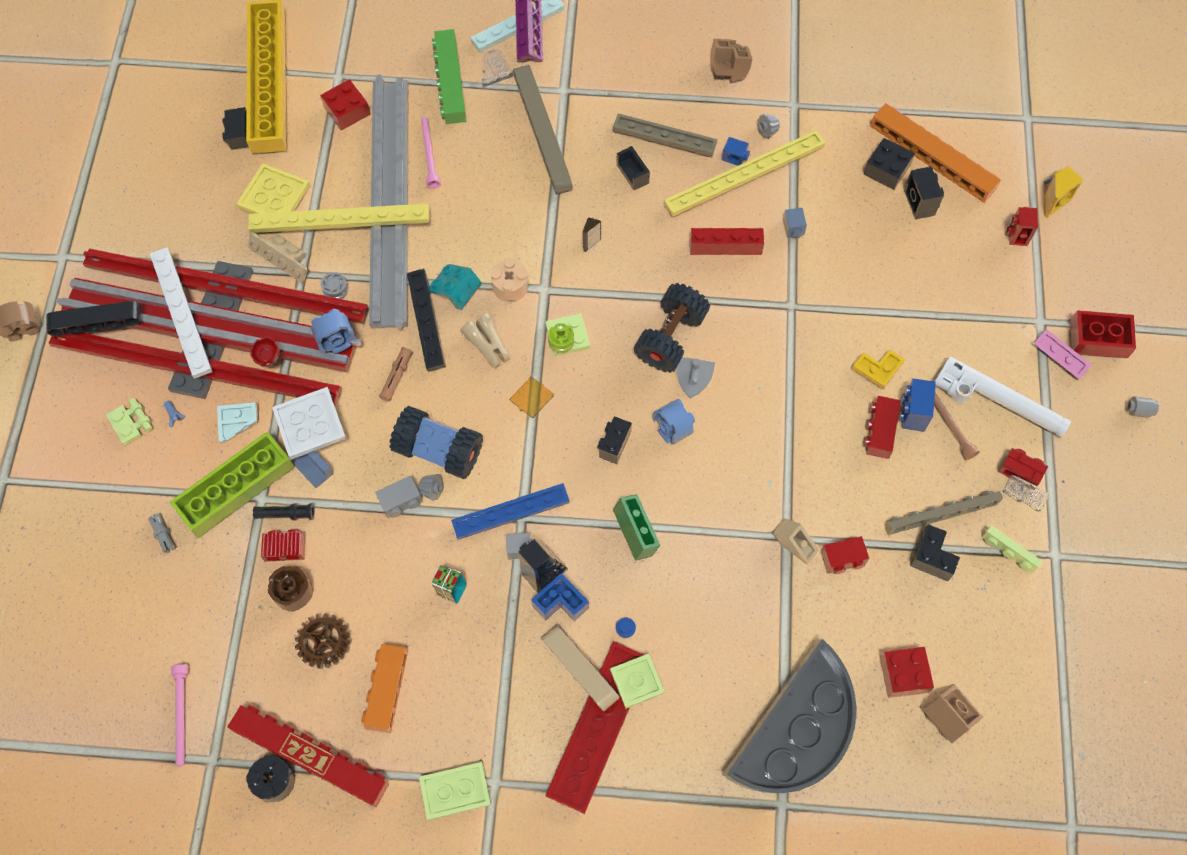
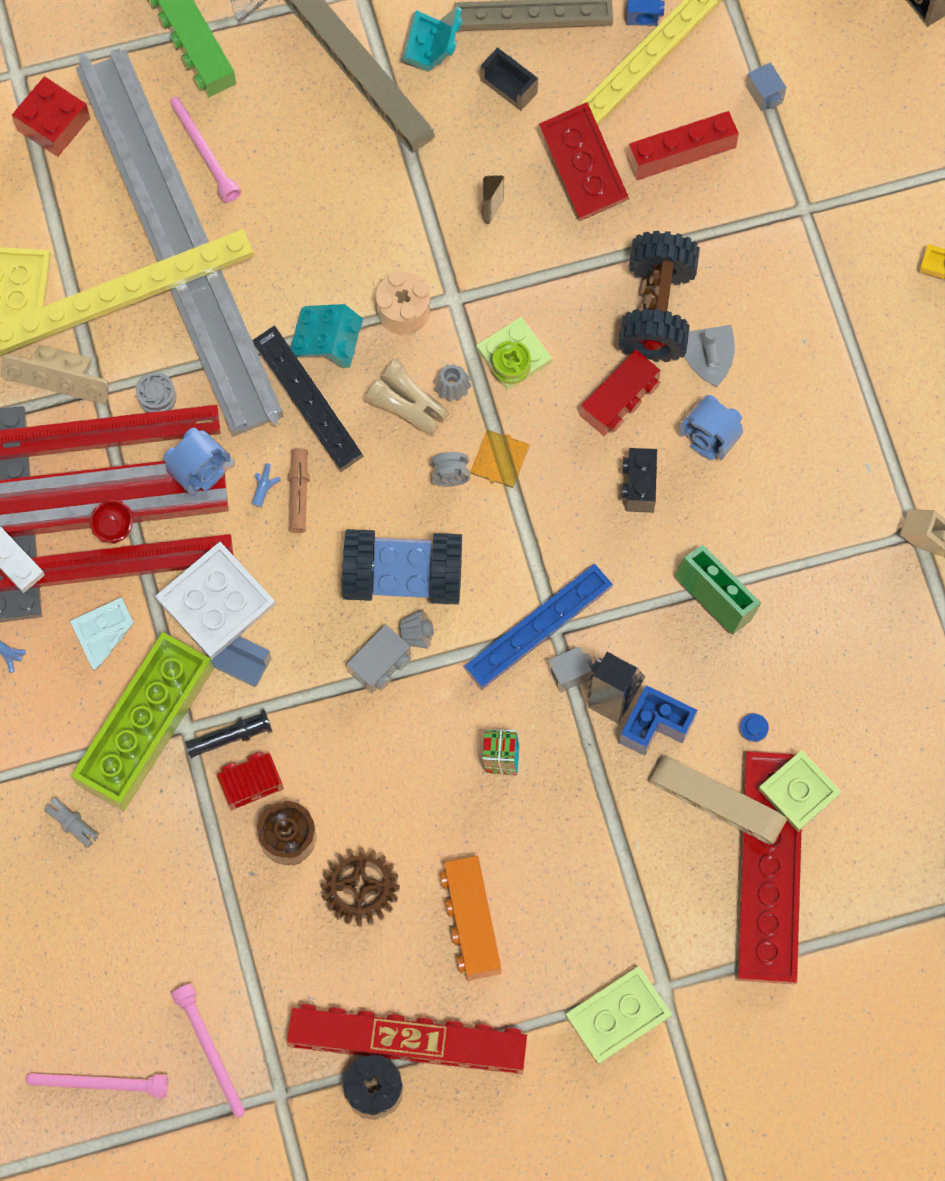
camera: 20 degrees left, 5 degrees up
(134, 725) = (153, 1086): none -> bright pink piece
(376, 363) = (263, 486): none -> medium blue bar
(495, 392) = (450, 469): none -> light grey wheel
(520, 339) = (452, 390): none -> light grey piece
(593, 130) = (431, 39): none -> teal bracket
(624, 381) = (620, 393): none -> red brick
(659, 231) = (584, 161): none -> red plate

